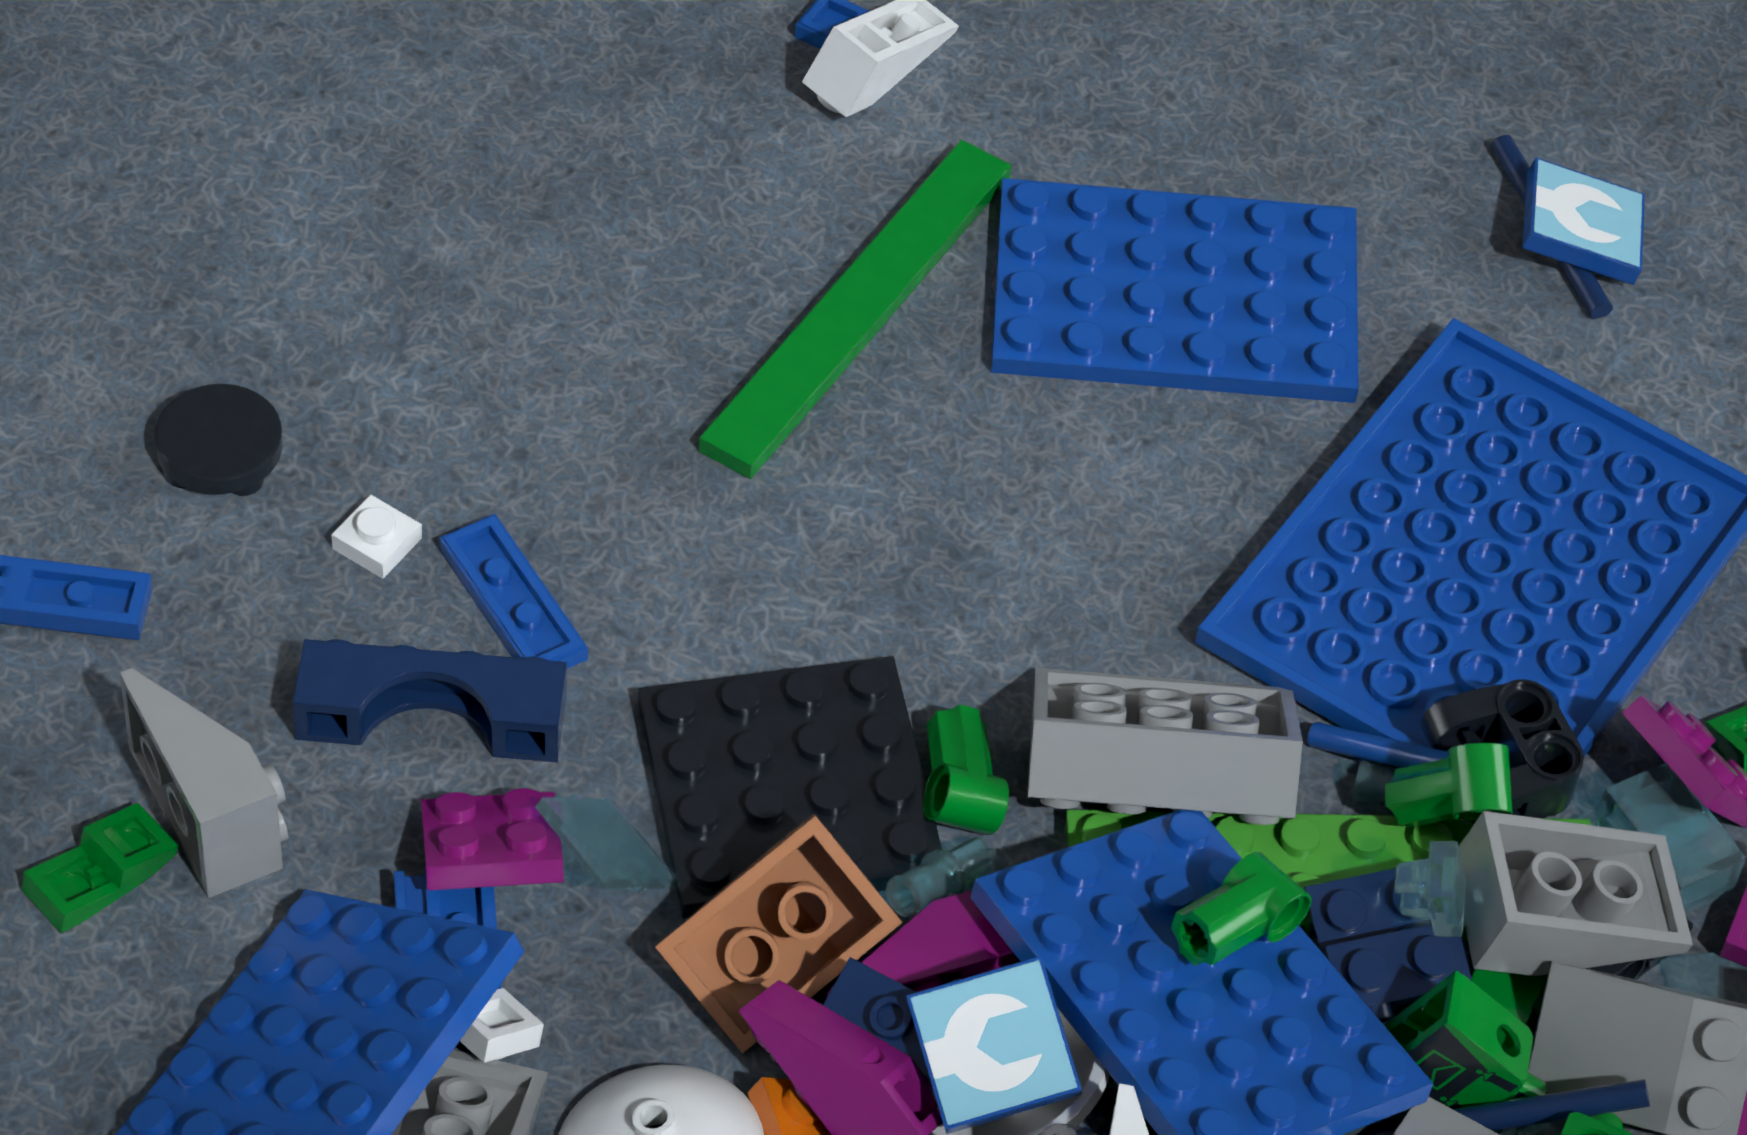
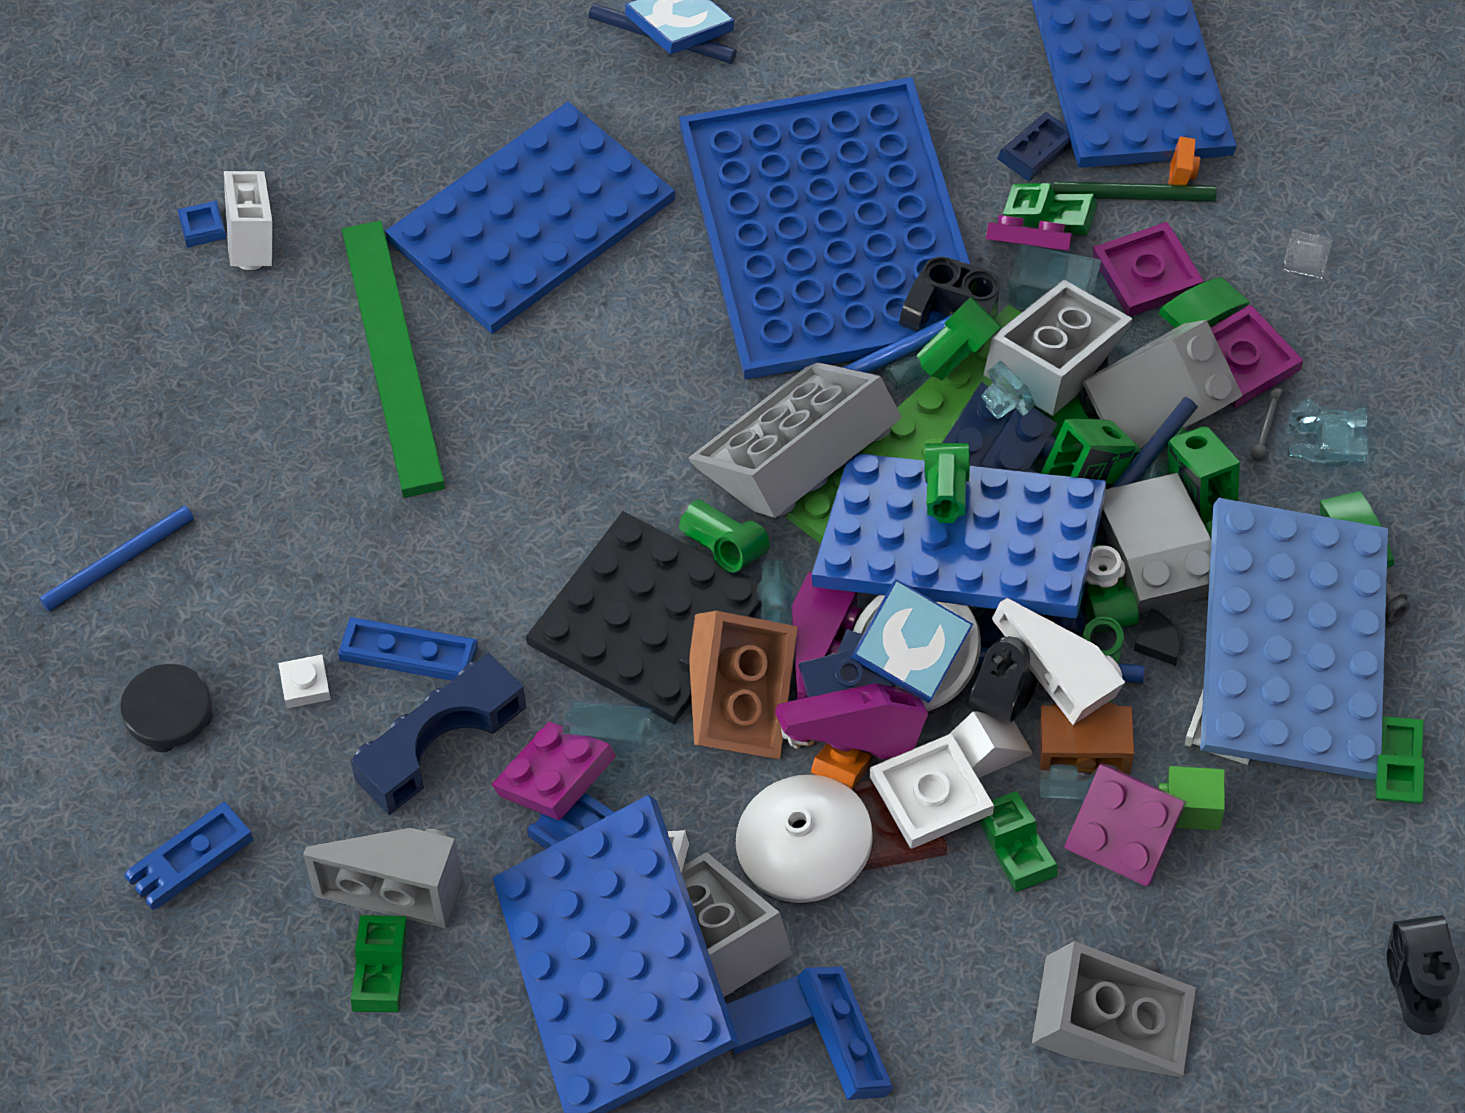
camera: 40 degrees left, 5 degrees up
(355, 264) = (116, 558): none -> blue bar

